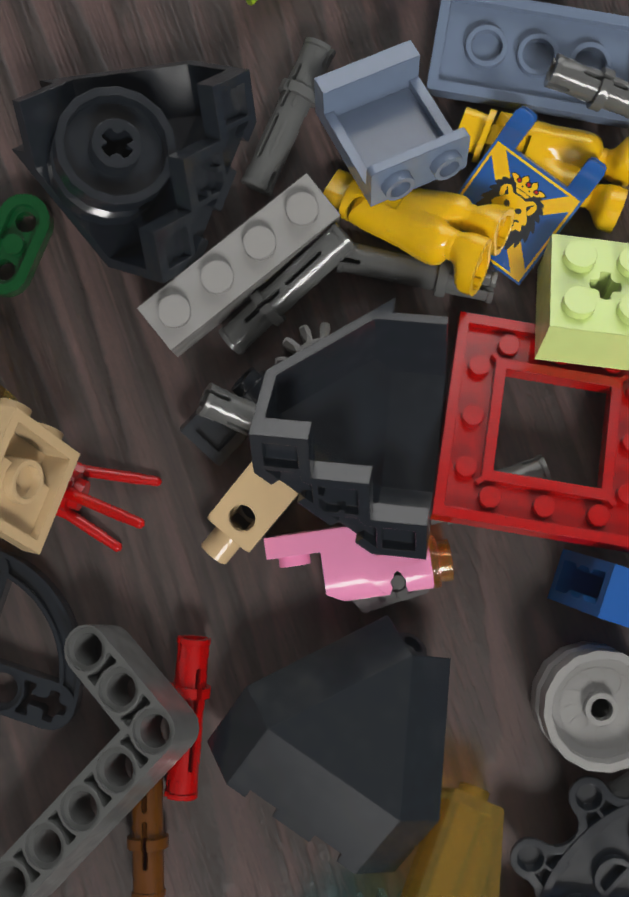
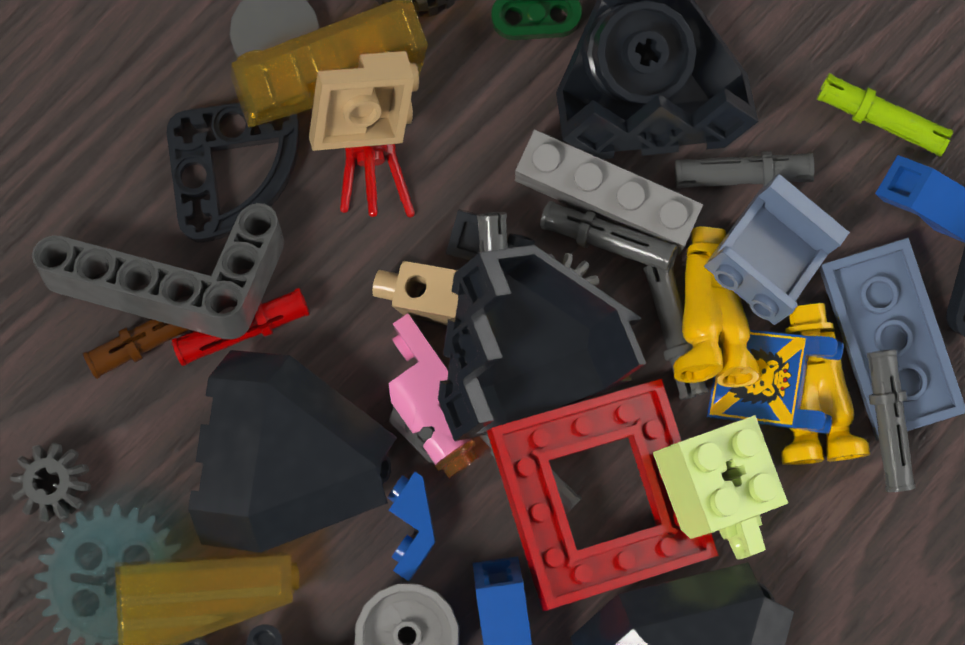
camera: 65 degrees right, 5 degrees down
(470, 633) = (412, 507): none -> blue slope

